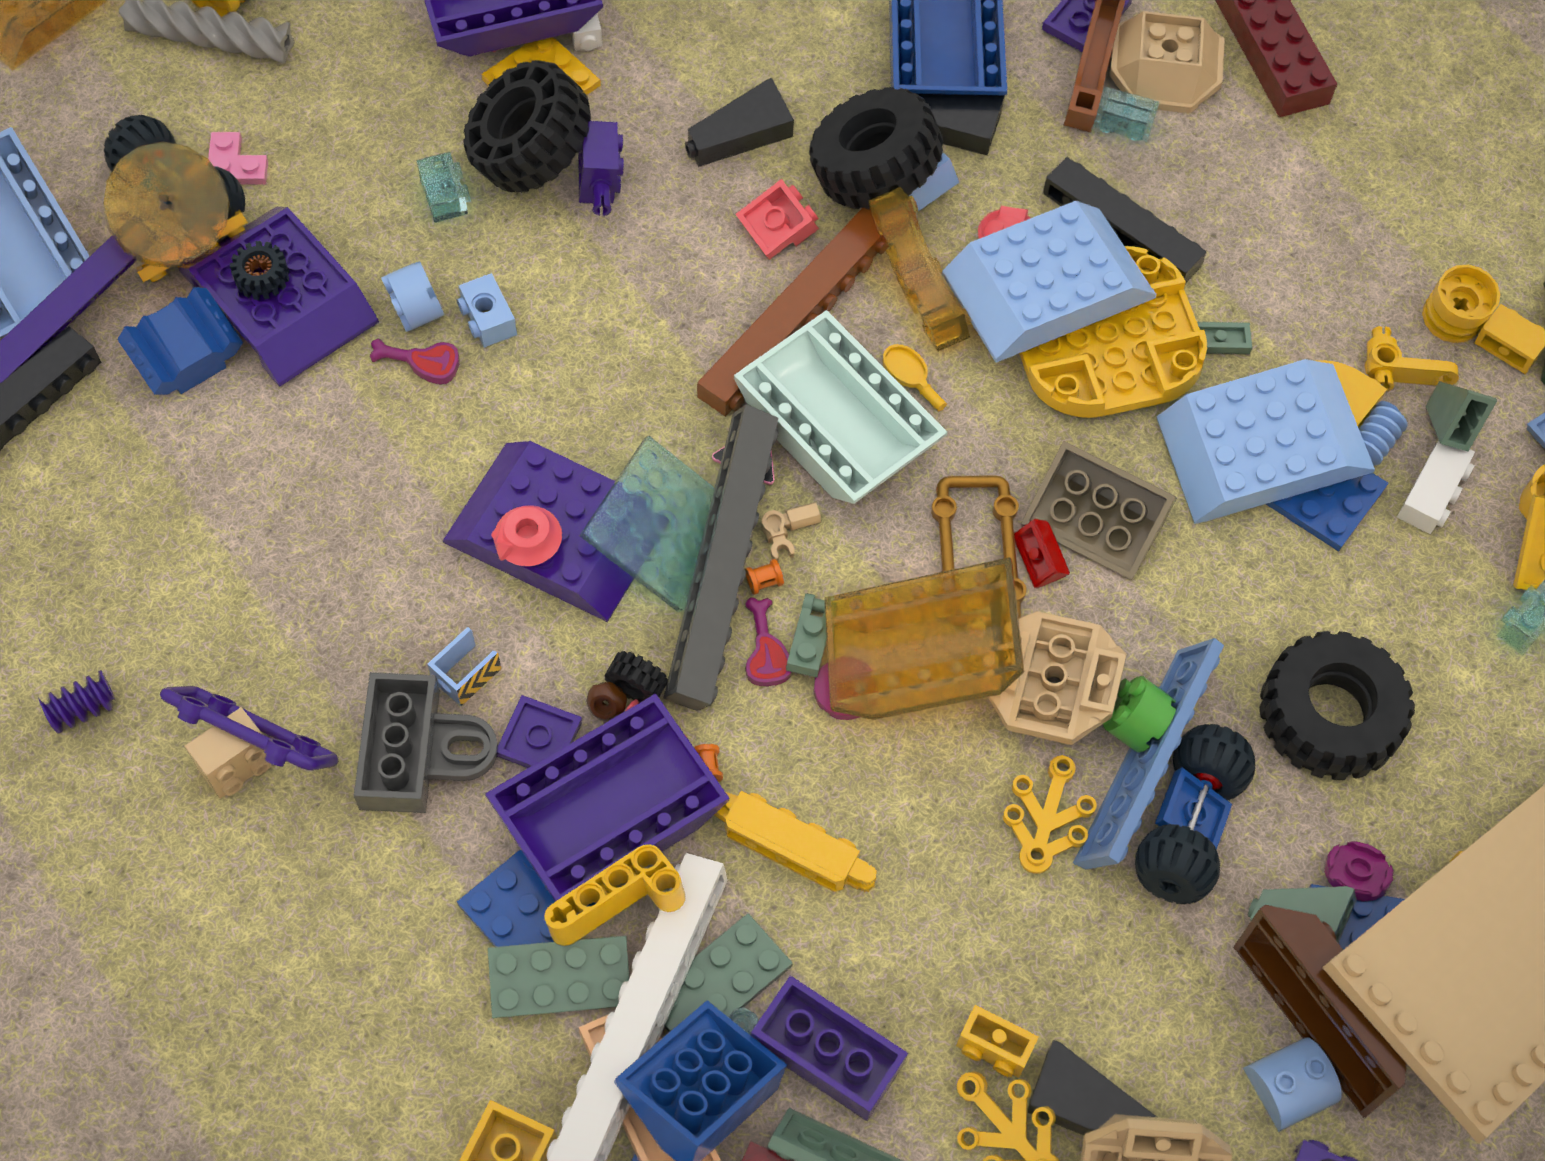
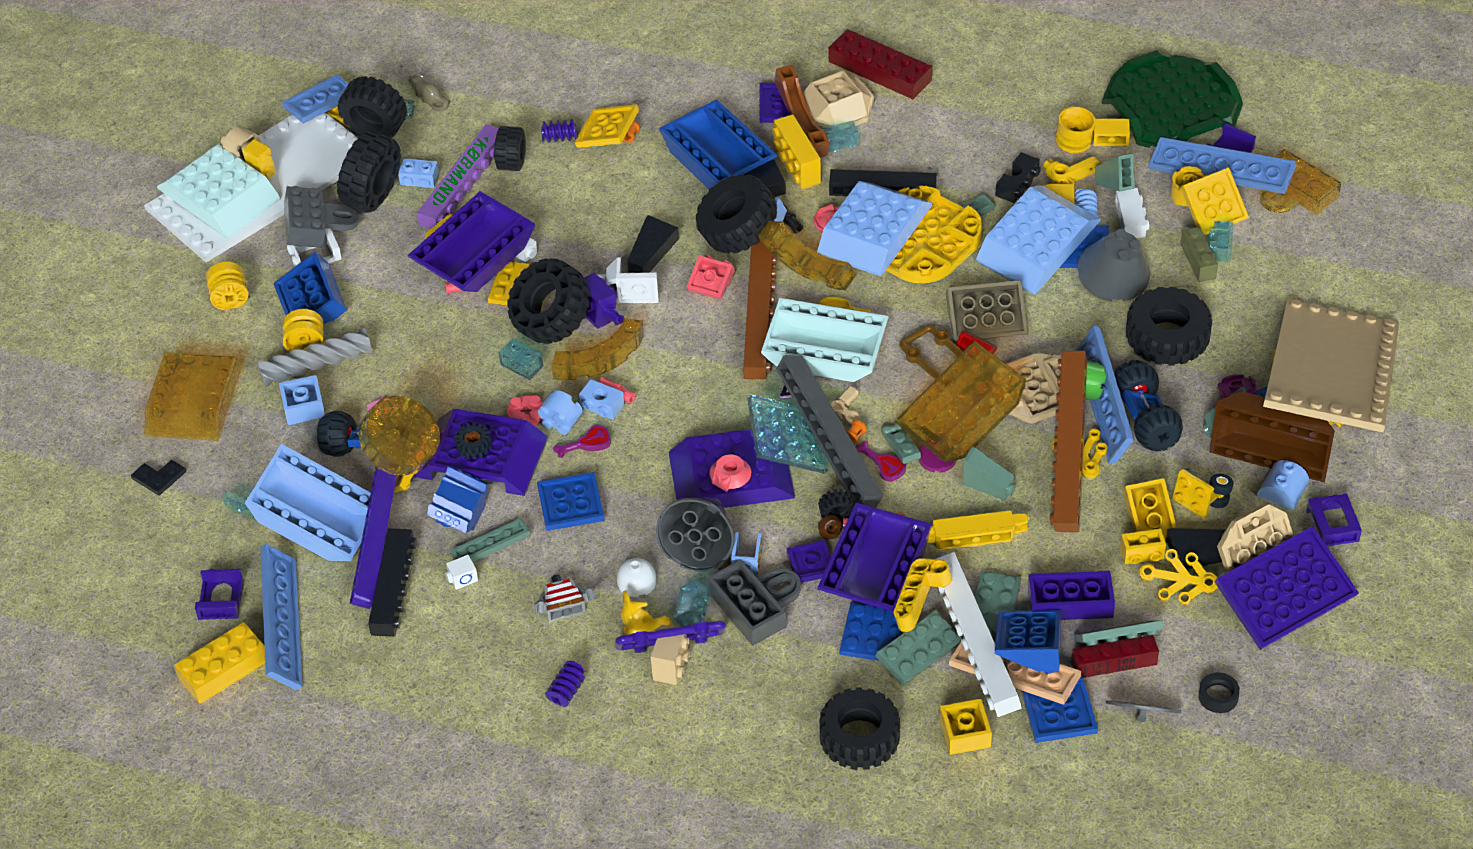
camera: 30 degrees left, 15 degrees down
(105, 446) = (461, 572): none -> white brick
(138, 76) = (302, 400): none -> light blue brick
(176, 427) = (492, 541): none -> sand green plate
(183, 570) = (563, 599): none -> torso
(245, 668) = (639, 619): none -> yellow piece
(304, 603) = (636, 577): none -> white cylinder
(322, 434) = (570, 501): none -> blue plate
(329, 695) = (692, 603): none -> clear light blue brick
(346, 1009) = (865, 750): none -> black tyre
(380, 253) = (525, 403): none -> coral plate
(420, 591) = (696, 533): none -> dark grey cone
(520, 308) = (628, 395): none -> coral pin
(544, 249) = (599, 358): none -> clear yellow brick
(654, 167) = (631, 286): none -> white plate
(877, 771) = (987, 475): none -> sand green slope
(958, 197) = (791, 220): none -> black pin
(1026, 801) = (1069, 442): none -> dark orange brick
(1042, 103) = (796, 152): none -> yellow brick
(1060, 988) = (1149, 506): none -> yellow slope
(1147, 1022) = (1199, 495): none -> yellow plate
(1299, 337) = (1024, 170): none -> black arch
(1335, 560) = (1114, 267): none -> dark grey cone
(1481, 616) = (1199, 254): none -> olive brick

